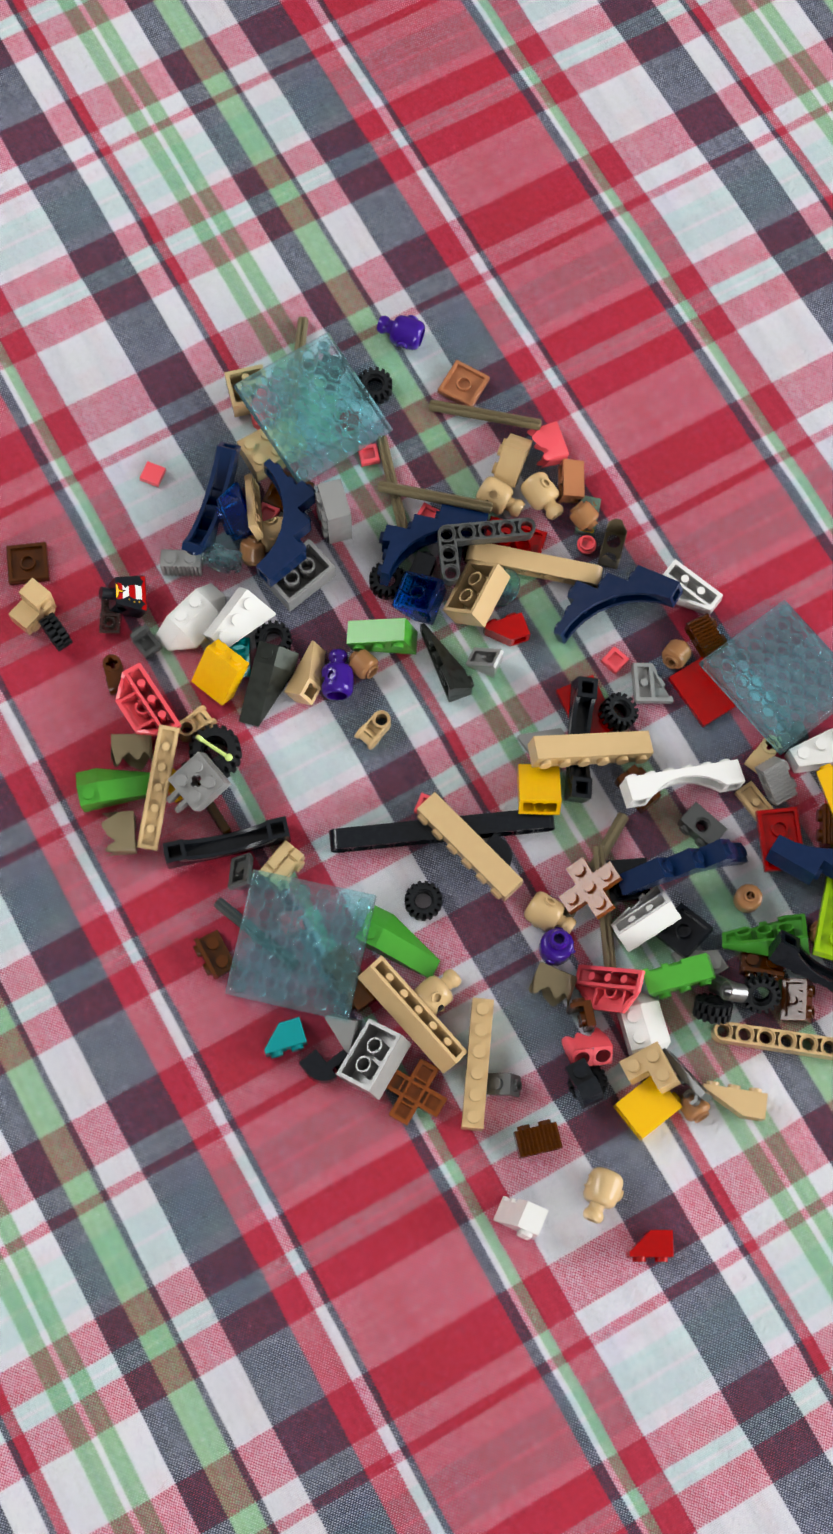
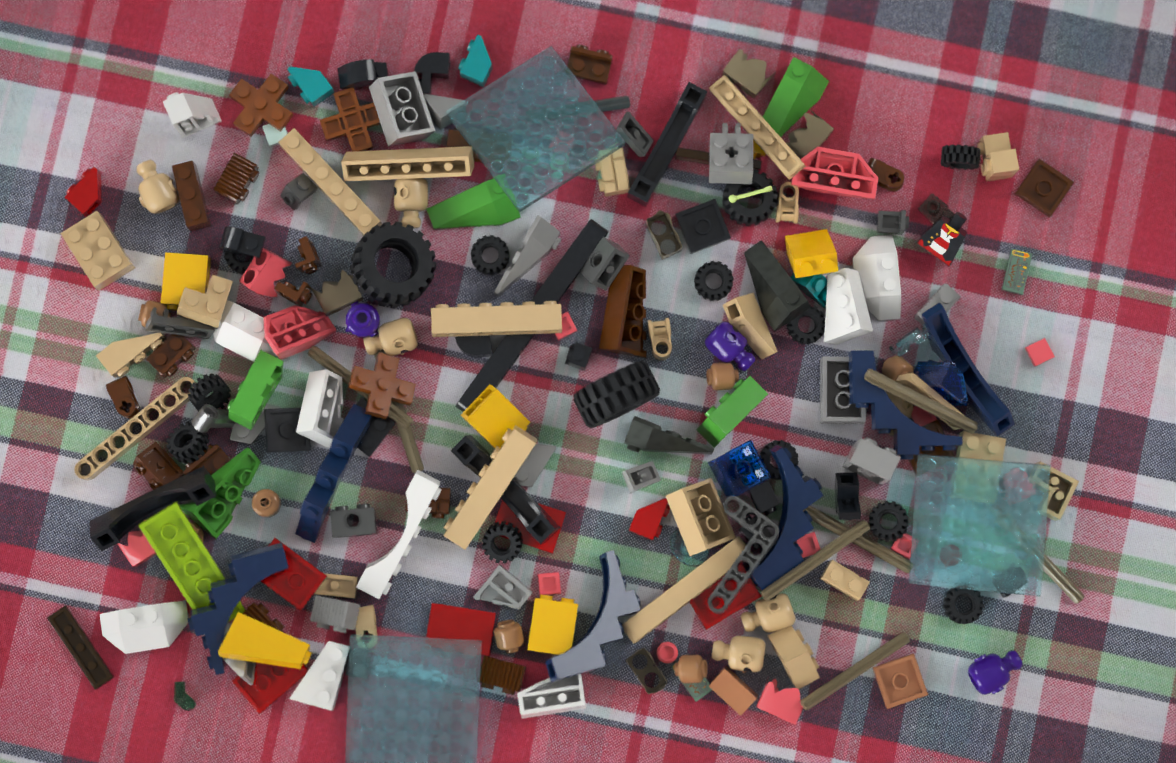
camera: 130 degrees right, 10 degrees up
(107, 533) = (1016, 271): none -> sand green tile
(263, 509) = (920, 401): none -> dark tan axle
(265, 769) = (703, 226): none -> black plate
(302, 716) = (720, 269): none -> black tyre
(303, 771) = (658, 239): none -> dark tan piece
(347, 804) = (604, 263): none -> dark grey brick
(359, 463) = (888, 534): none -> black tyre
(373, 513) = (847, 496): none -> black brick
(373, 1115) = (361, 73): none -> black brick
(378, 768) = (624, 313): none -> reddish brown wedge
(390, 872) = (537, 245): none -> light grey wedge
(414, 1147) = (312, 83): none -> teal slope
(430, 469) = (844, 580): none -> tan brick
(439, 773) = (578, 356): none -> black brick
(446, 714) = (616, 394): none -> black tyre
(464, 1174) = (261, 105): none -> dark orange plate
(475, 1144) = (273, 135): none -> light aqua tile
(482, 936) = (407, 242): none -> black tyre
(546, 1027) = (309, 253): none -> reddish brown bracket
(582, 1161) = (191, 195): none -> reddish brown brick
(641, 631) = (552, 625): none -> yellow brick
(687, 1194) = (97, 250): none -> tan brick
(710, 1067) = (171, 354): none -> reddish brown bracket
(772, 1077) = (123, 394): none -> reddish brown piece

